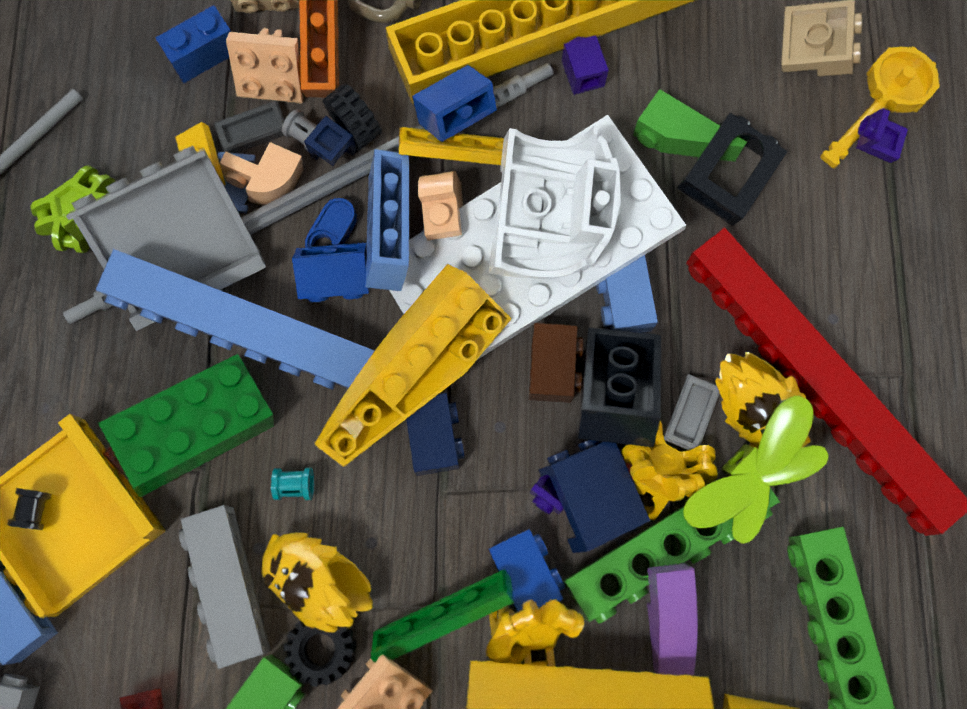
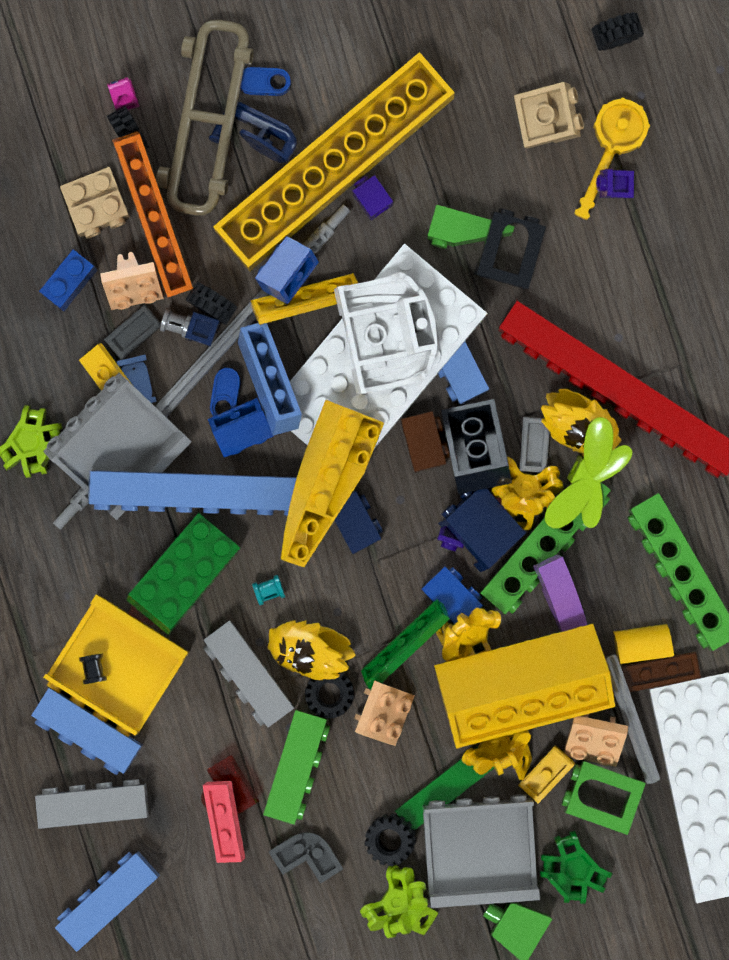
camera: 15 degrees left, 10 degrees up
(269, 179) = (166, 373): light nougat brick -> none
(440, 204) = (302, 349): light nougat brick -> none

